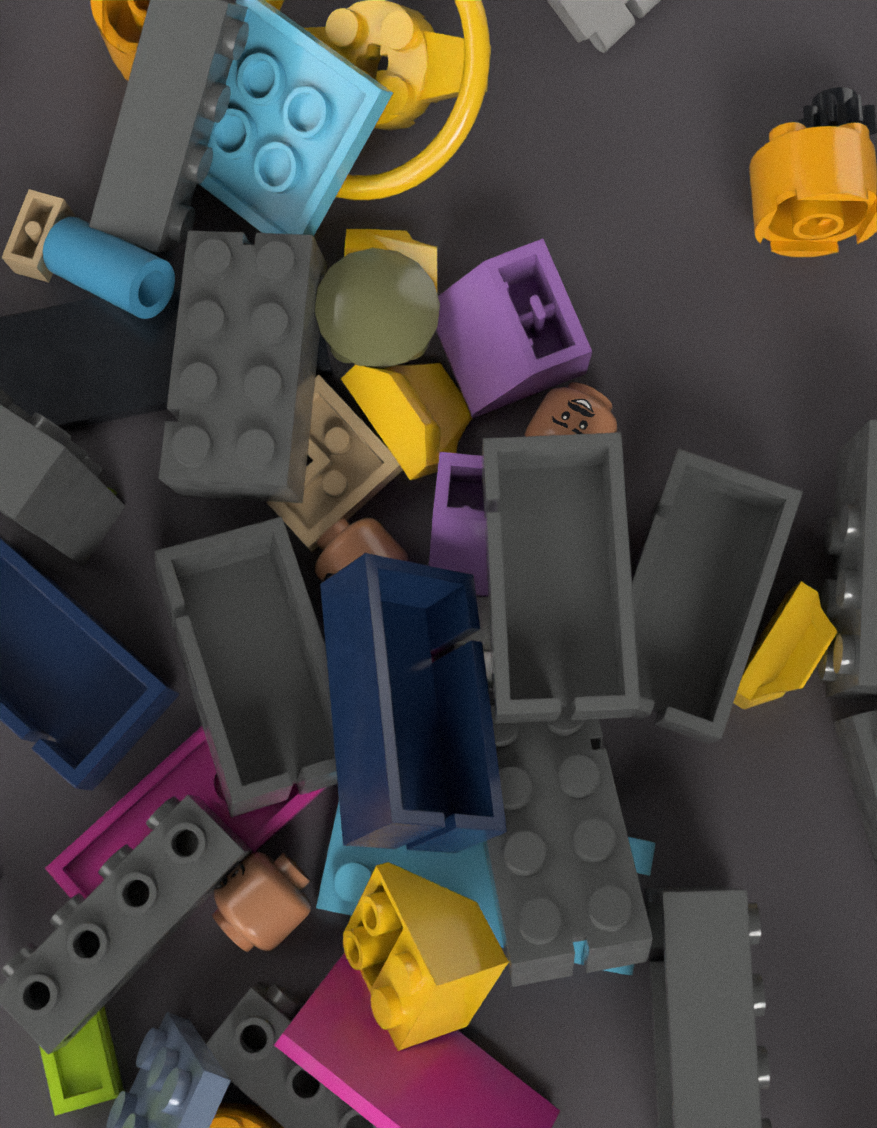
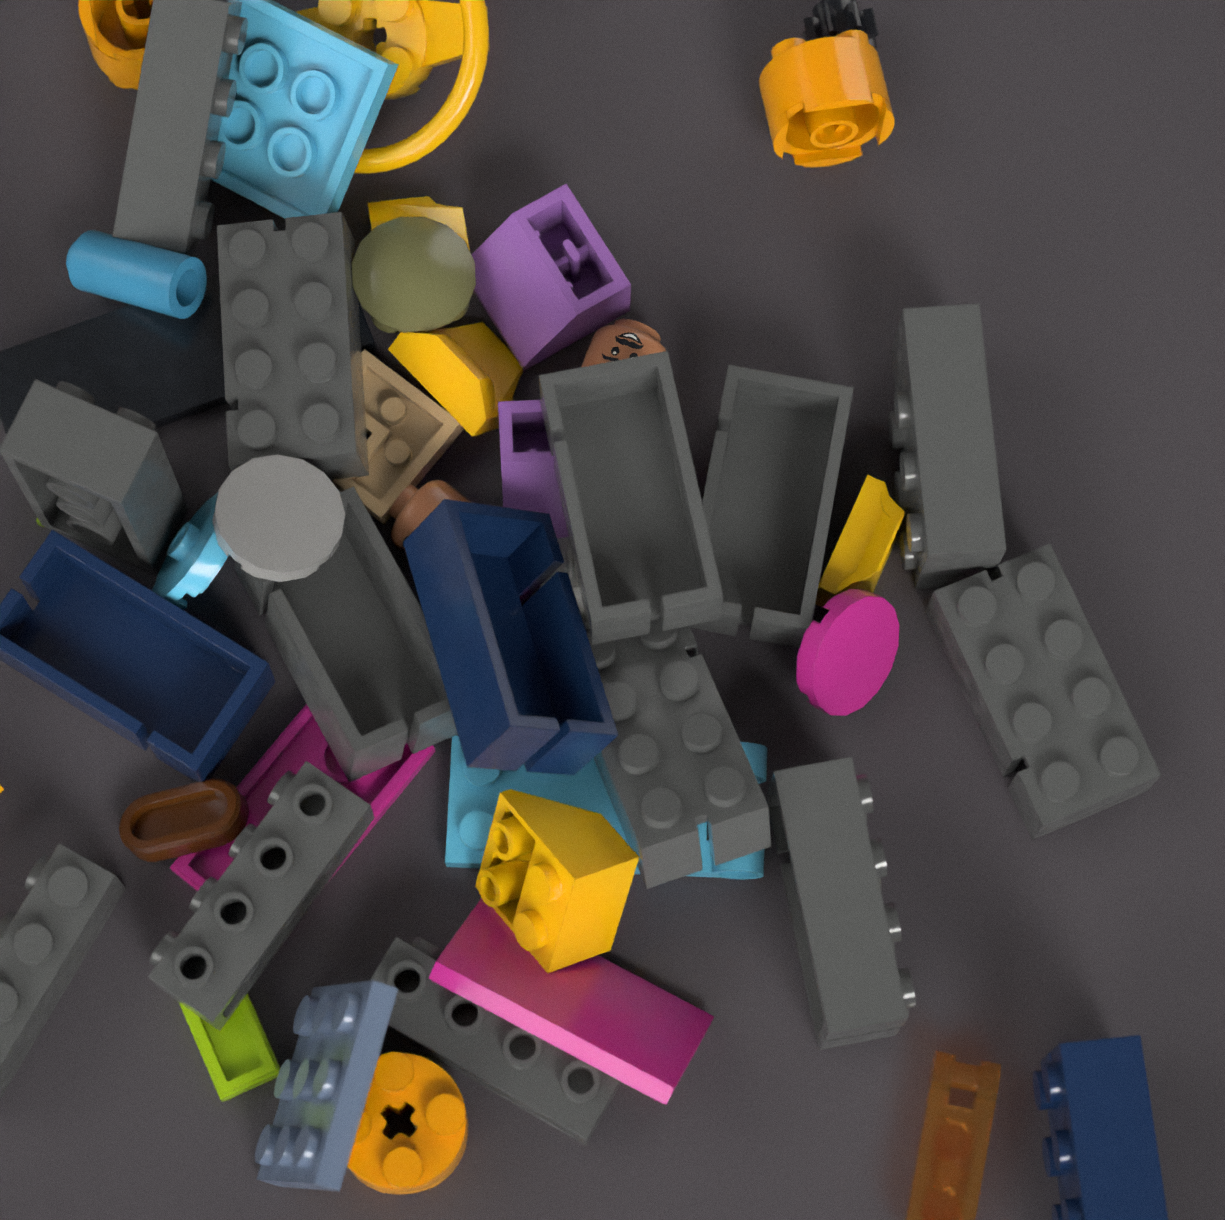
camera: 15 degrees left, 5 degrees down
(29, 233) = (51, 253): tan piece -> none
(65, 823) = (183, 820): none -> reddish brown tile
(119, 557) = (191, 558): none -> medium azure plate
(197, 541) = (278, 517): none -> light grey tile
(262, 901) = (391, 861): nougat head -> none
(755, 764) = (848, 652): none -> dark pink tile

